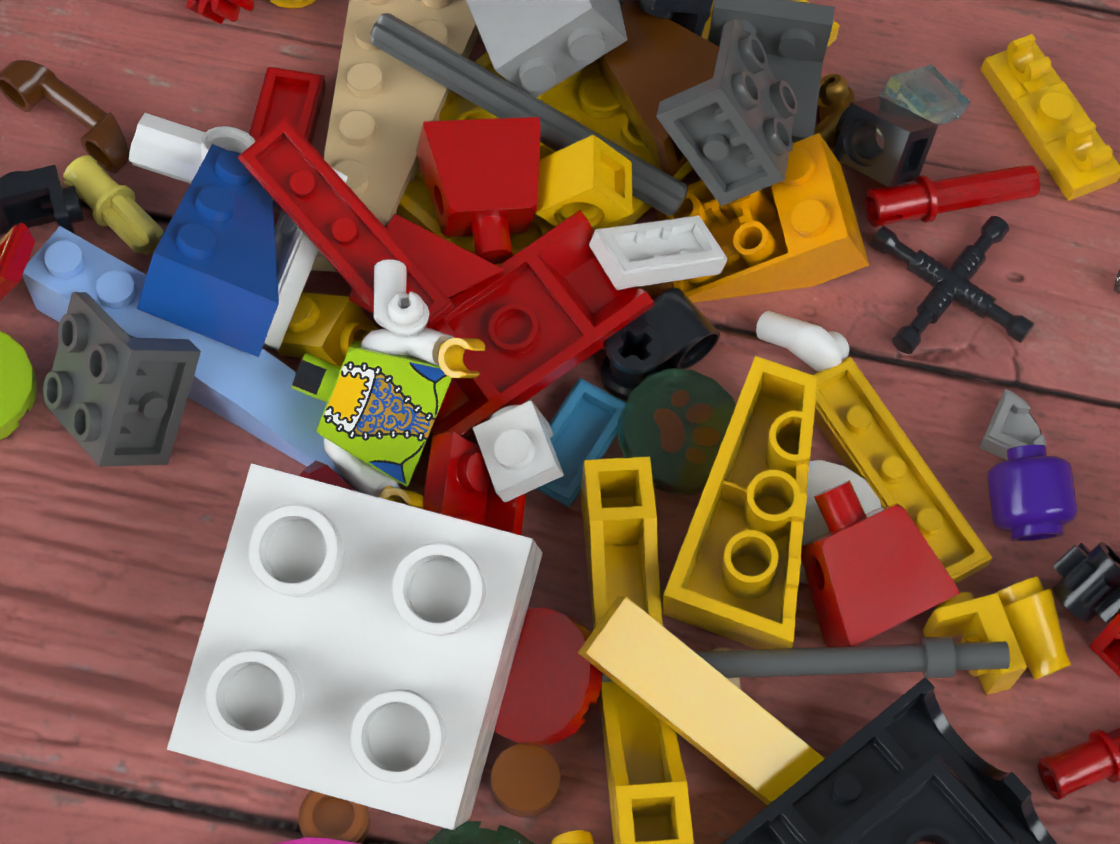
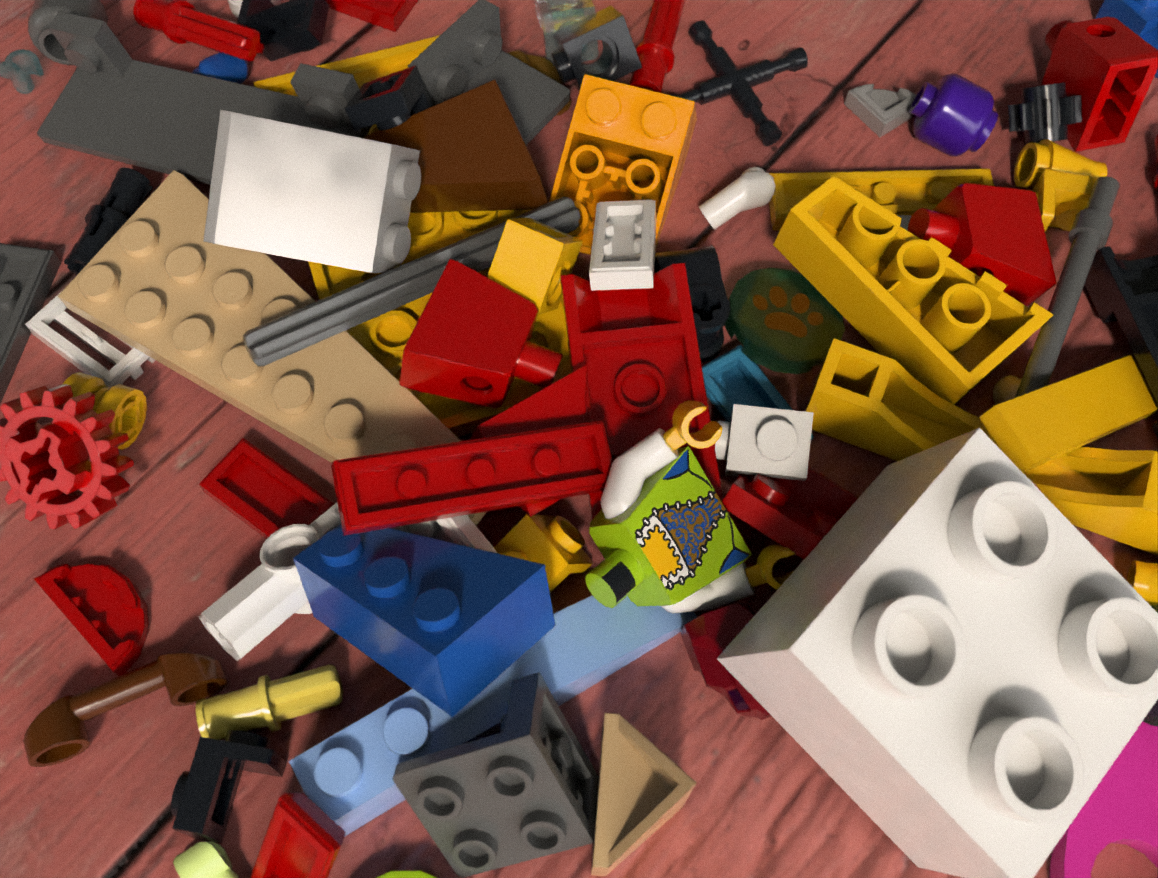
camera: 60 degrees left, 0 degrees up
(135, 64) = (102, 608): none -> red tile
(153, 483) = (635, 793): none -> tan slope
(393, 307) = (600, 464): white arm -> none
(735, 123) = (558, 123): dark grey bracket -> none

